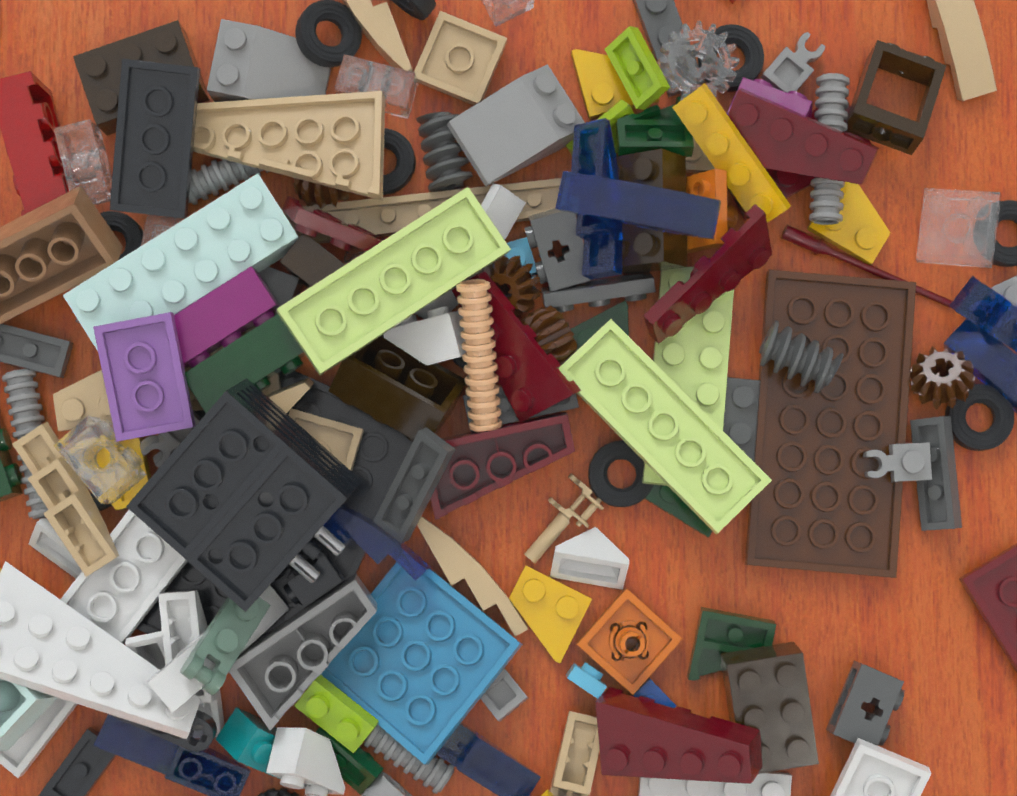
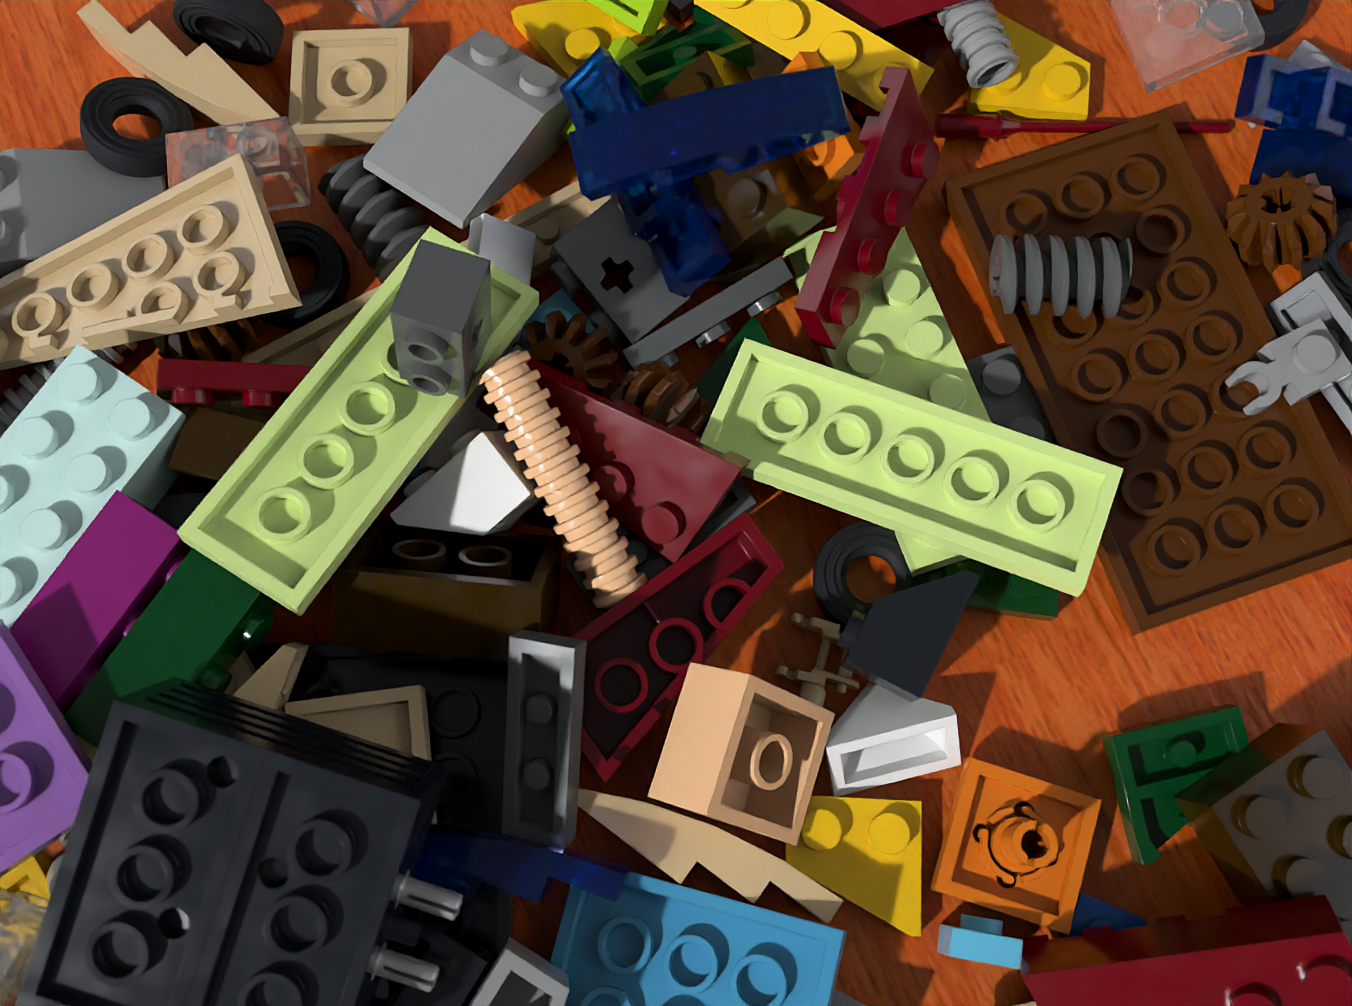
camera: 20 degrees left, 10 degrees down
(451, 257) = (442, 319): none -> dark grey brick
(510, 536) = (742, 752): none -> light nougat brick
(621, 512) = (906, 634): none -> black slope

